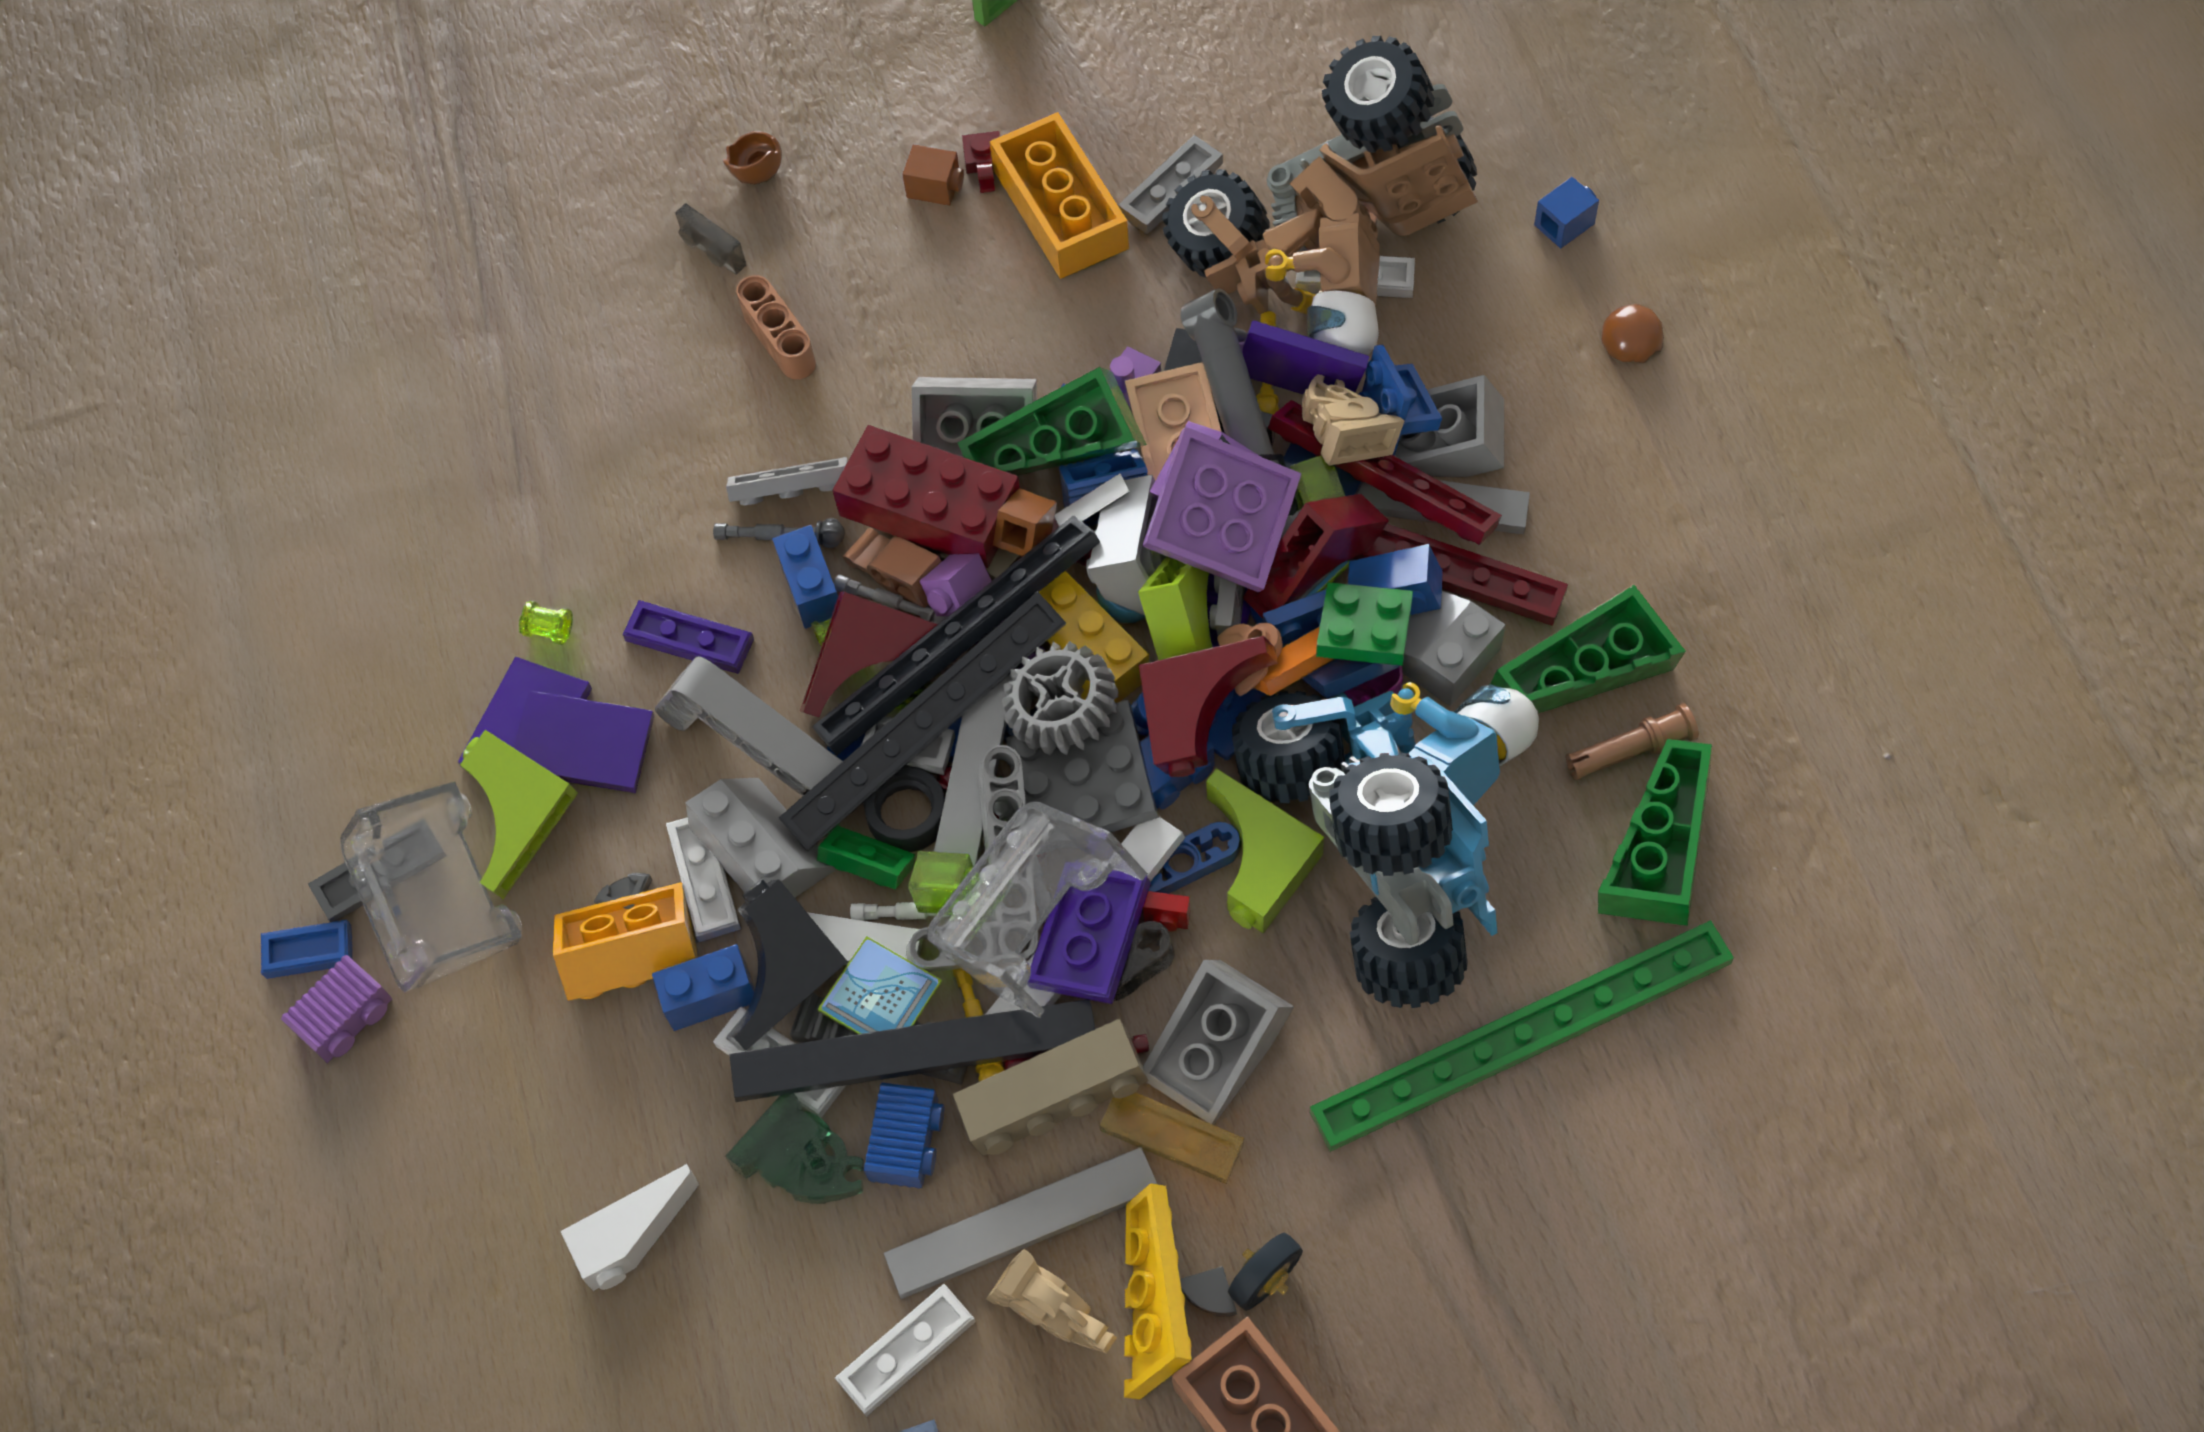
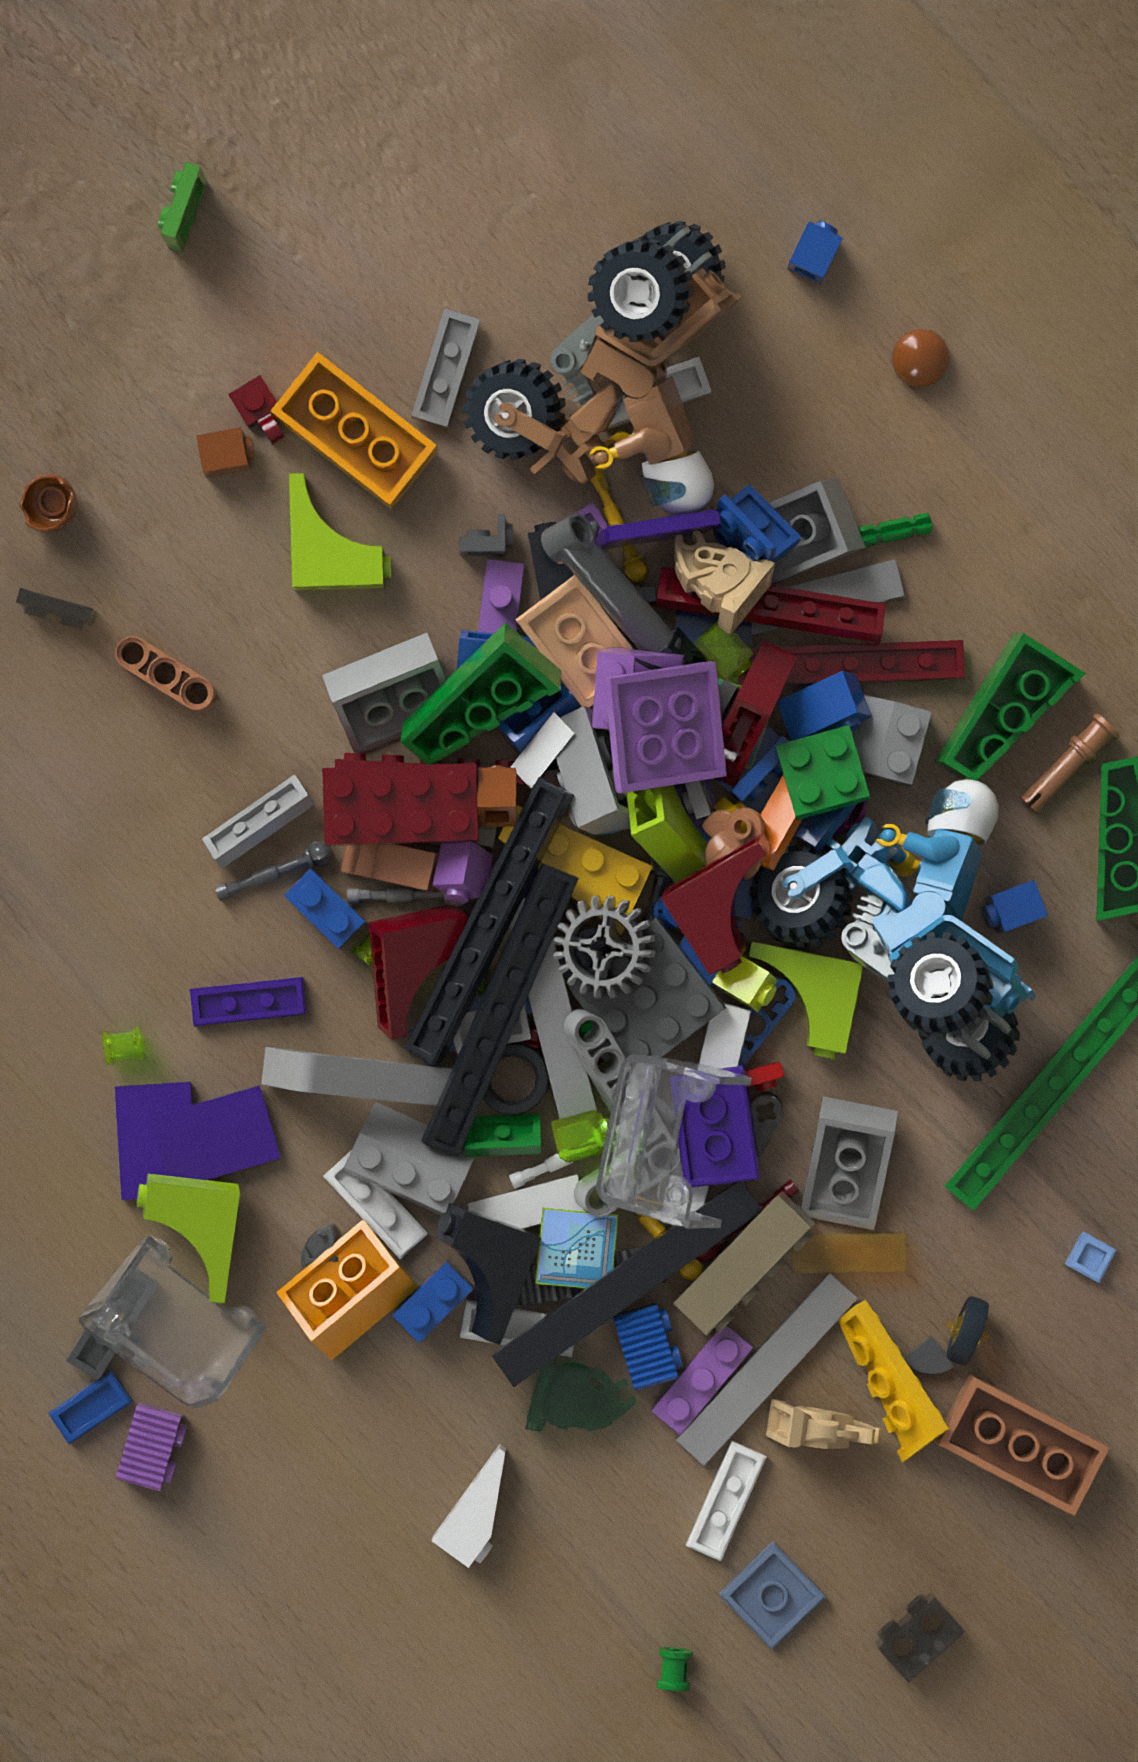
camera: 30 degrees left, 25 degrees up
(946, 1200) = (701, 1379): none -> medium lavender plate
(977, 289) = (324, 557): none -> lime arch
(1130, 330) = (482, 544): none -> dark grey bracket
(1191, 806) = (747, 984): none -> neon yellow brick
(1443, 1262) = (1090, 1256): none -> light blue tile
(1515, 845) = (1014, 907): none -> blue brick
(1542, 469) = (896, 529): none -> green axle

